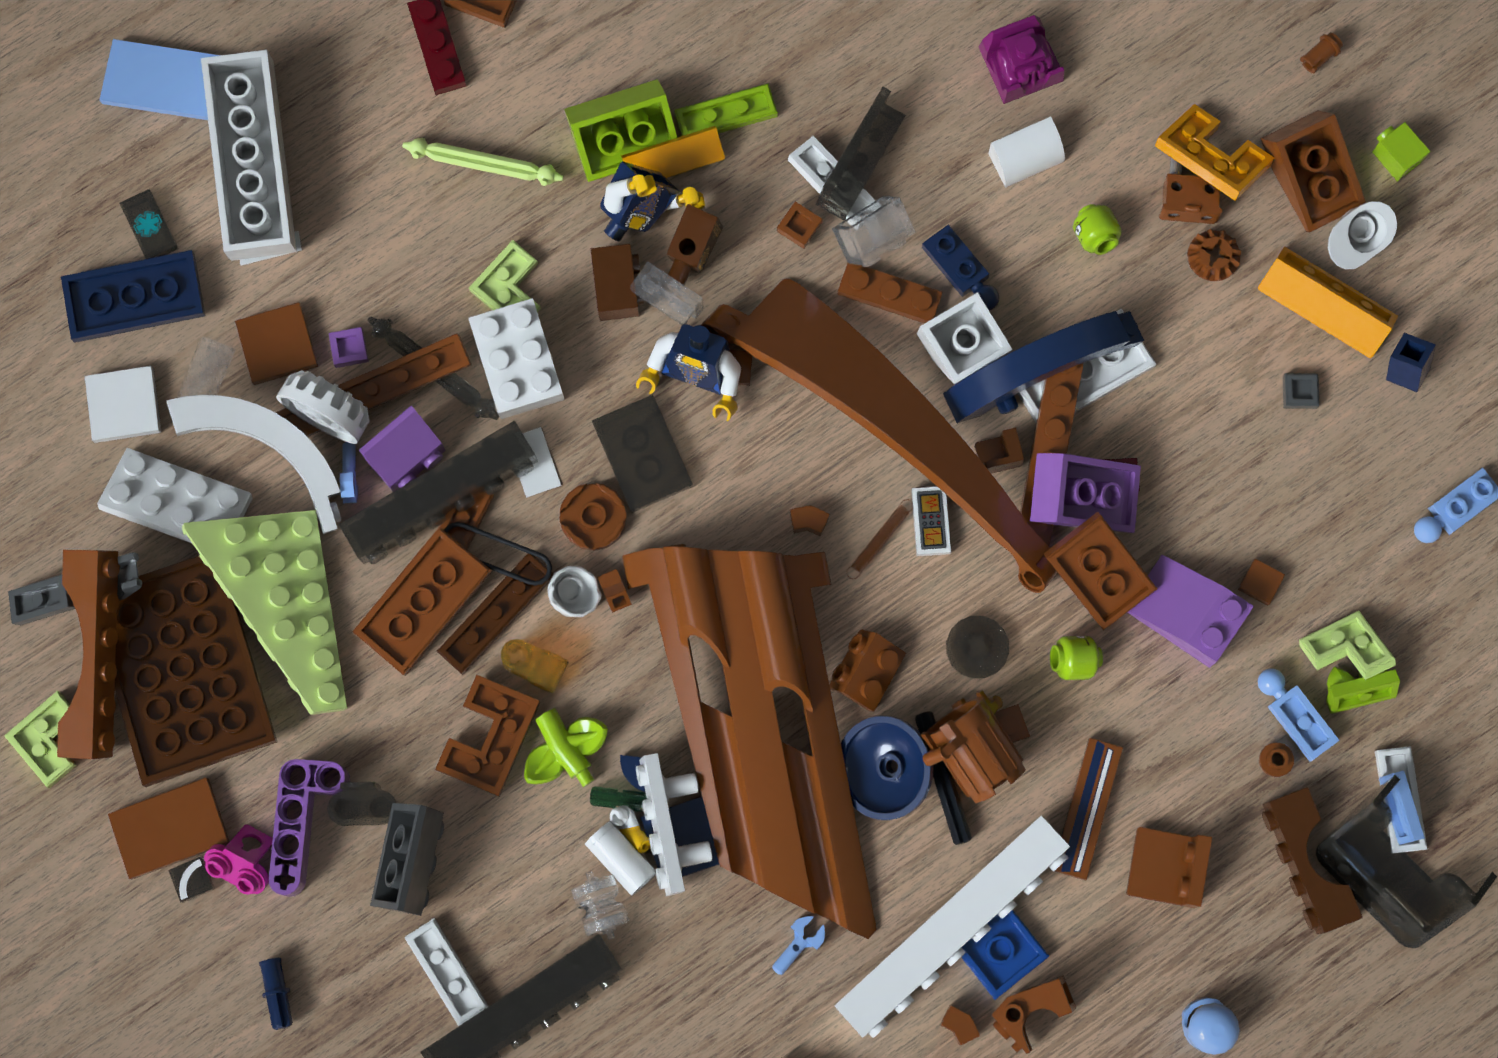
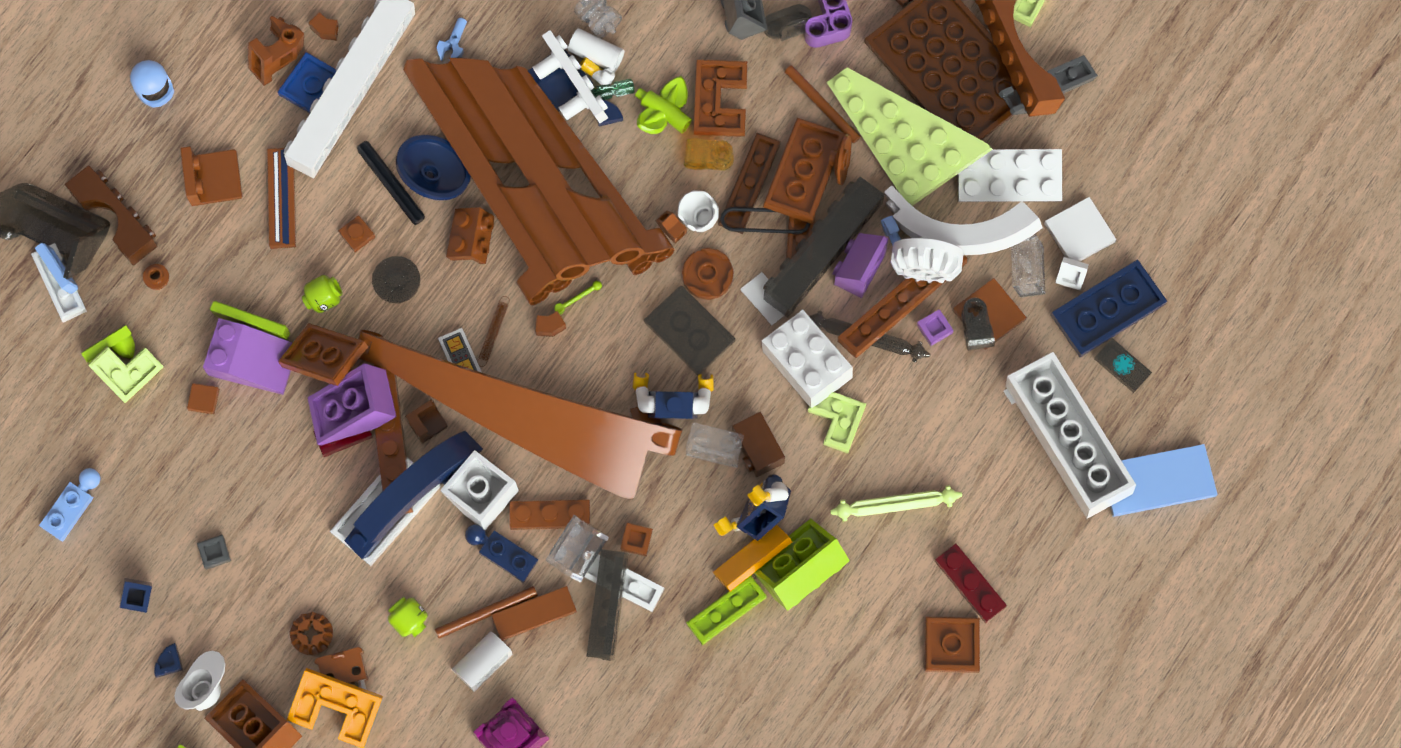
camera: 160 degrees right, 5 degrees down
(156, 351) = (1071, 273): none -> white plate
(299, 318) = (977, 330): none -> clear smoke piece
(364, 683) = (823, 105): none -> dark orange bar
(373, 591) = (841, 159): none -> dark orange dish
(697, 230) = (710, 491): reddish brown torso -> none
(788, 540) = (596, 285): none -> lime hinge
(948, 186) = (534, 613): none -> dark orange tile
(974, 747) = (375, 200): dark orange container -> none
(1003, 207) = (486, 612): none -> dark orange bar
(1175, 656) = (242, 317): none -> lime tile
(1297, 715) = (150, 311): light blue plate -> none
(1328, 302) = (211, 627): light orange panel -> none
(1390, 282) = (168, 662): none -> dark blue tile

